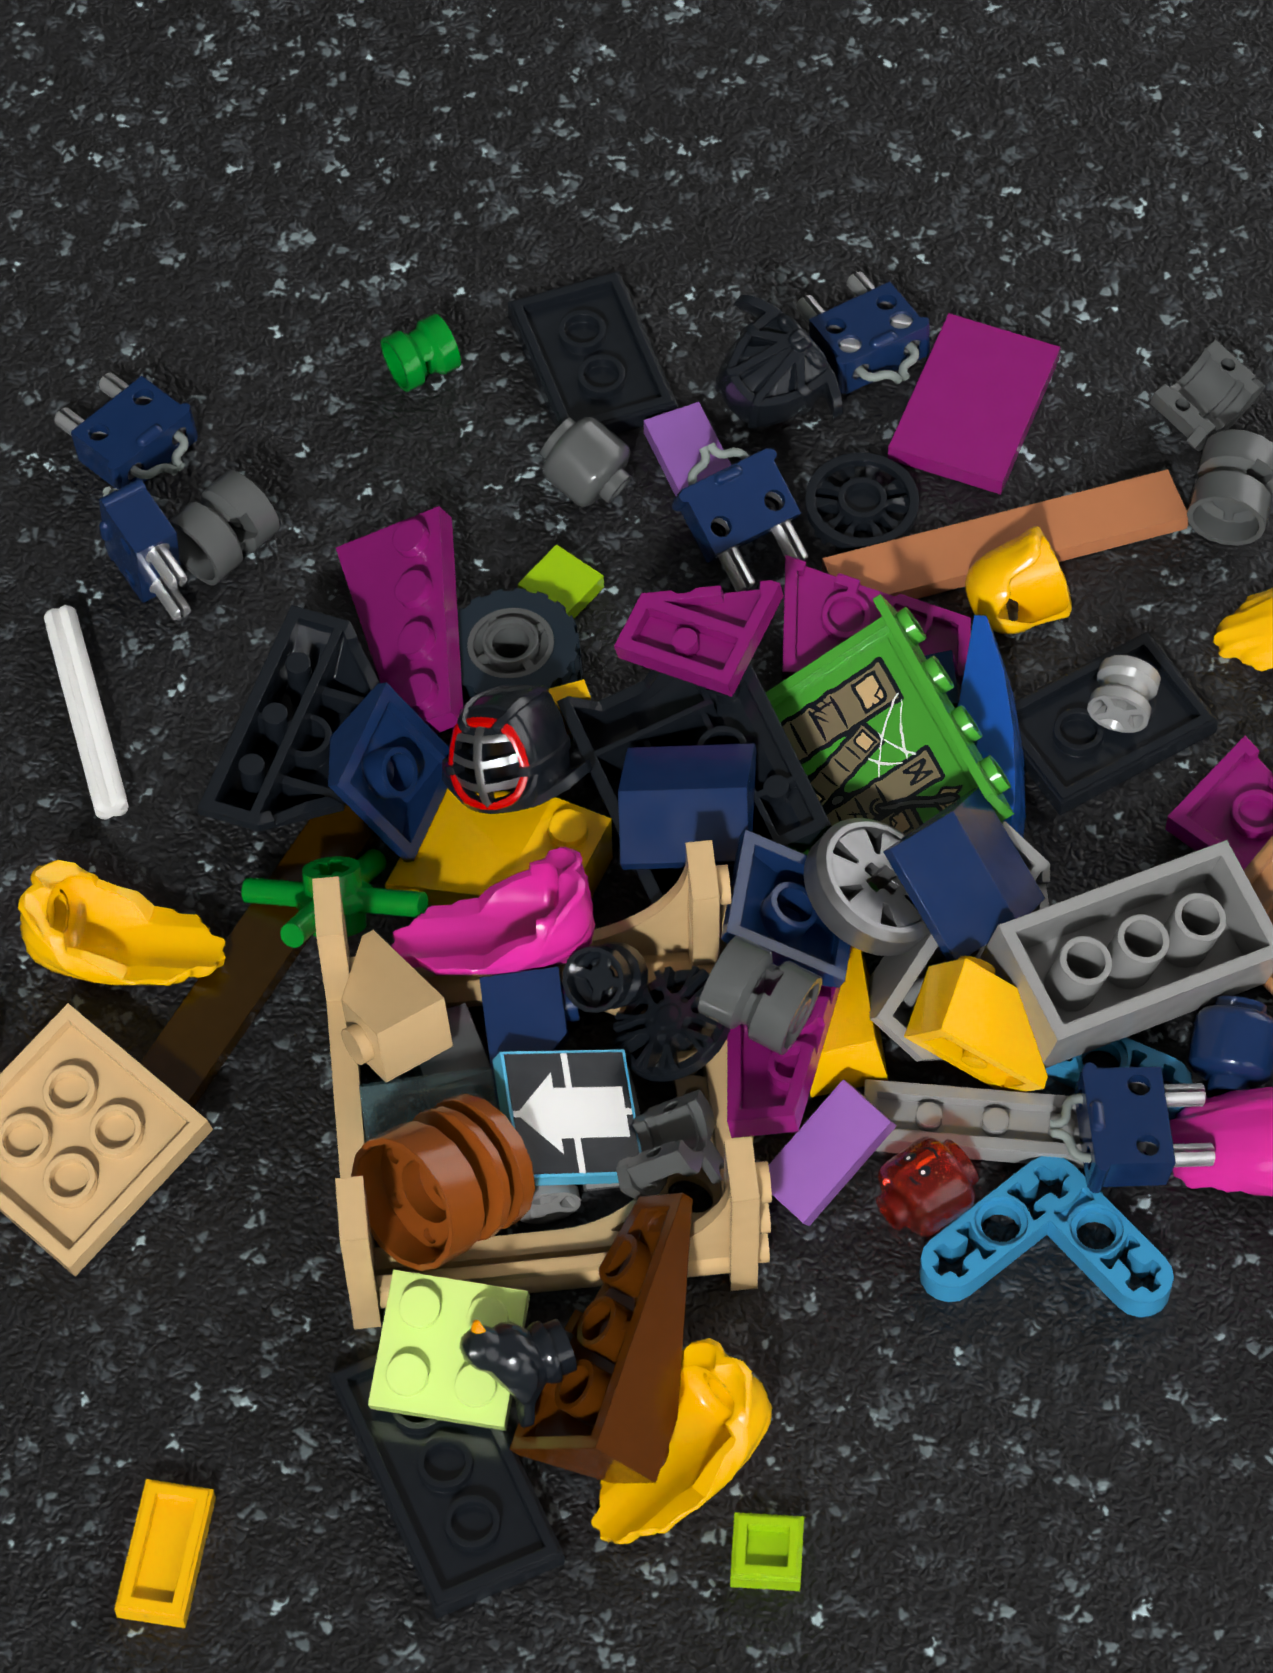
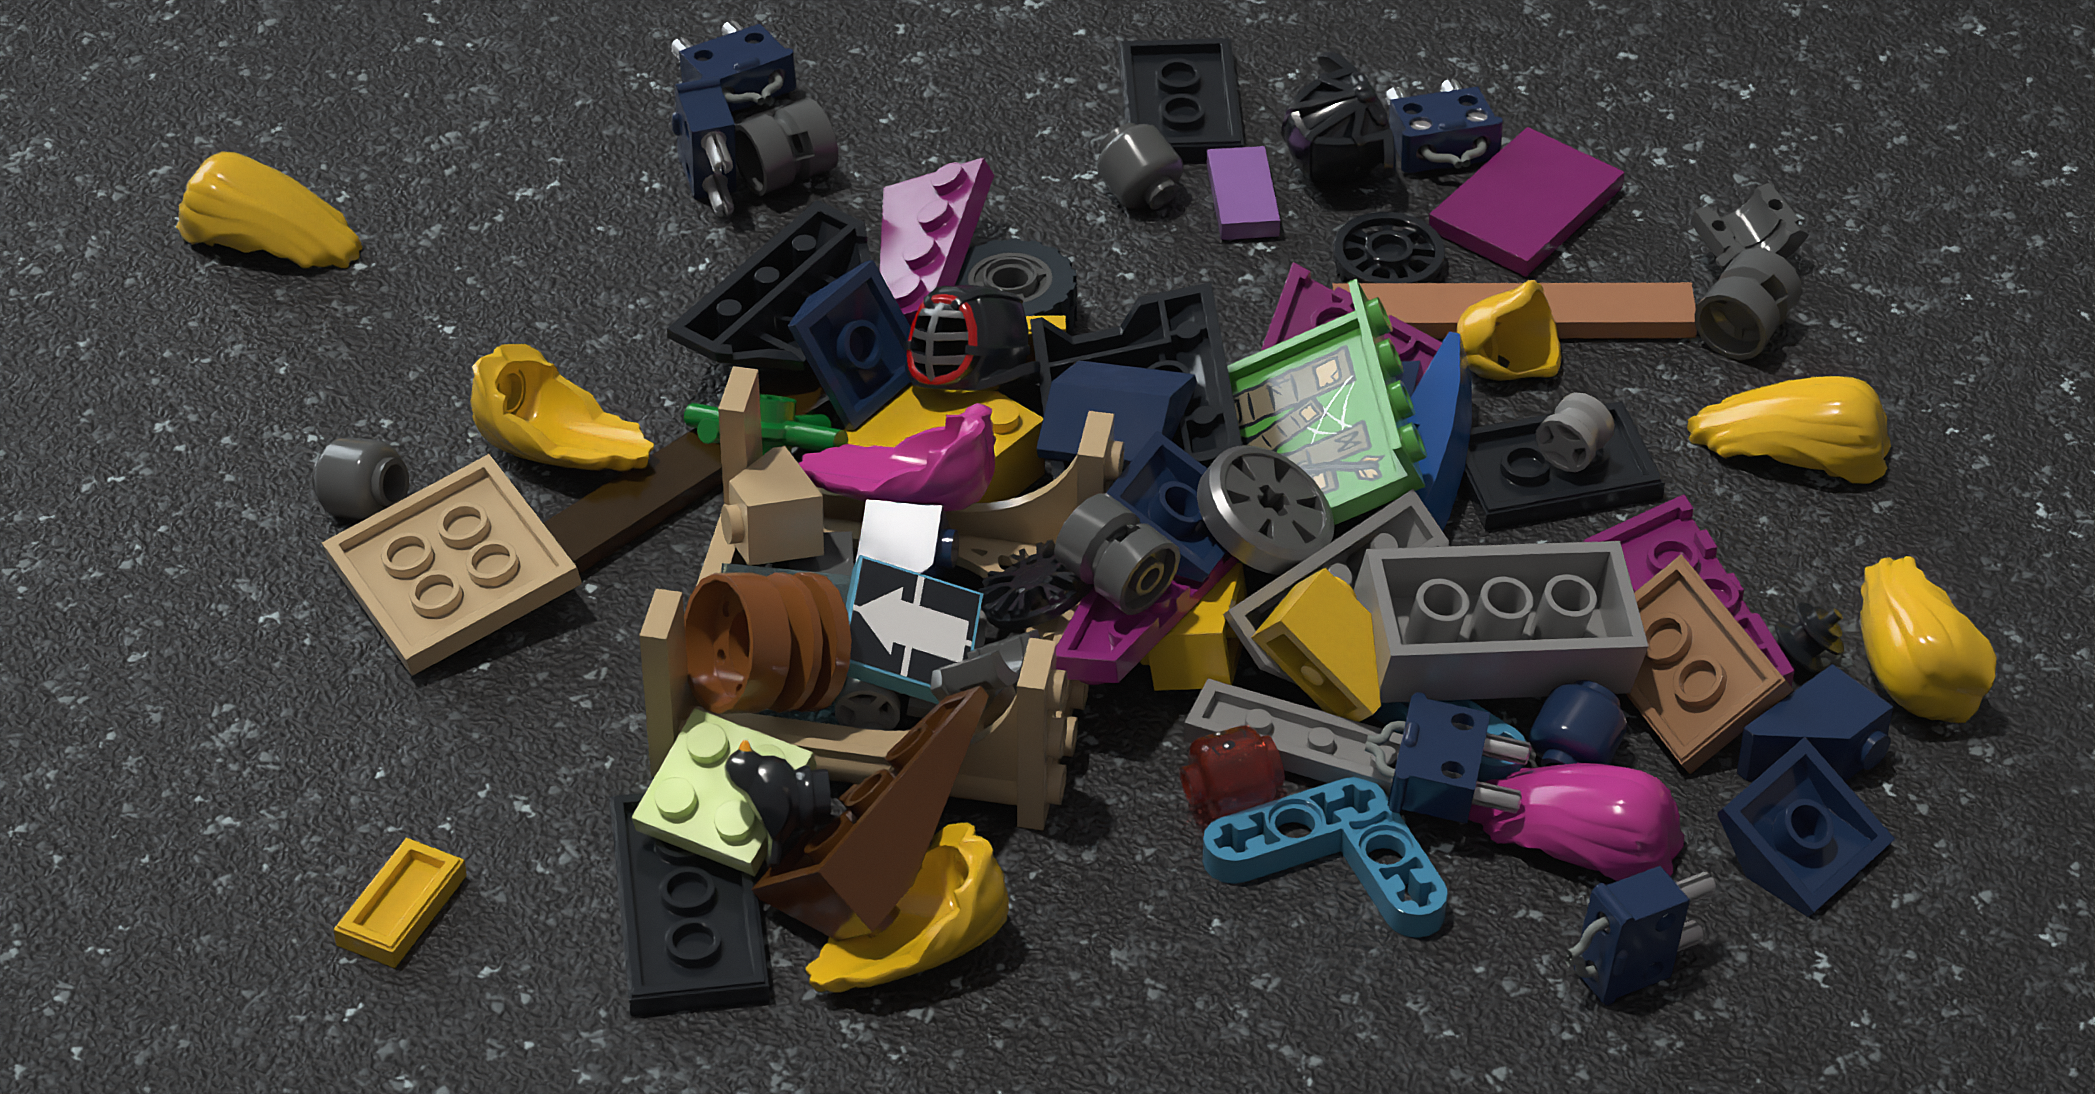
camera: 15 degrees right, 15 degrees down
(86, 712) = (606, 263): white axle -> none
(420, 352) = (1021, 59): green wheel -> none
(564, 580) = (1089, 254): lime tile -> none
(590, 977) = (984, 526): black wheel -> none
(699, 633) = (1176, 280): magenta wing -> none
(737, 506) = (1265, 225): dark blue piece -> none
(767, 1551) = (964, 1033): lime tile -> none
(827, 1152) = (1147, 726): medium lavender tile -> none
(964, 875) = (1349, 505): dark blue slope -> none

